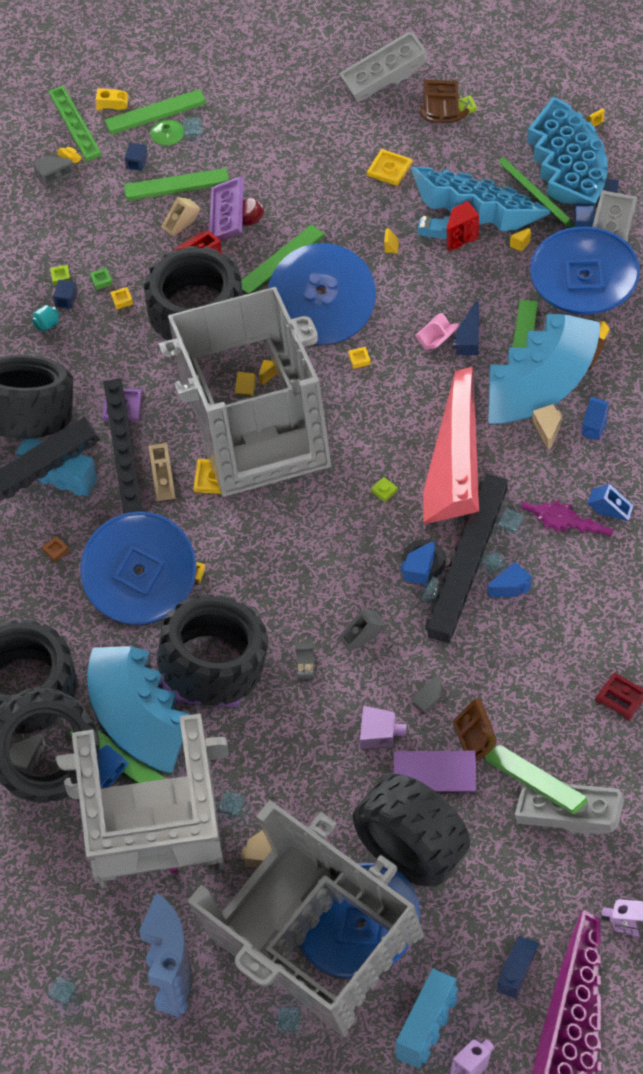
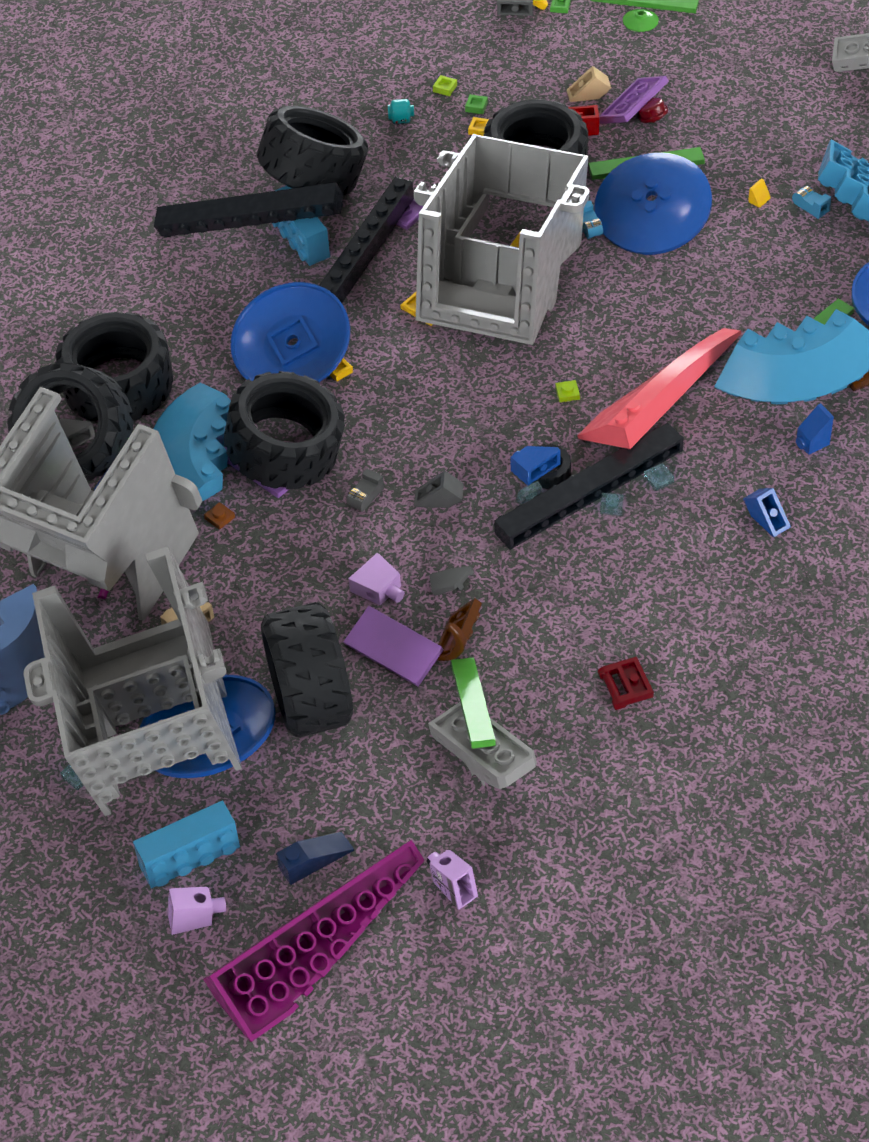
camera: 35 degrees right, 5 degrees down
(55, 549) = (242, 291): dark orange plate -> none
(65, 294) = (434, 101): dark blue brick -> none
(136, 156) = (593, 24): dark blue brick -> none
(161, 472) = (386, 274): tan slope -> none
(175, 184) = (608, 61): bright green tile -> none
(192, 126) = (665, 23): clear light blue plate -> none
(232, 804) = (197, 570): clear light blue plate -> none
(359, 357) = (643, 273): yellow plate -> none
(389, 167) = (814, 135): yellow tile -> none
(436, 332) = (731, 284): bright pink panel -> none
(462, 226) = (832, 209): red slope -> none
(468, 333) = (762, 301): dark blue slope -> none
(510, 582) = (608, 527): blue slope -> none
(548, 423) = (769, 413): tan slope -> none
(560, 516) = (710, 497): magenta piece -> none

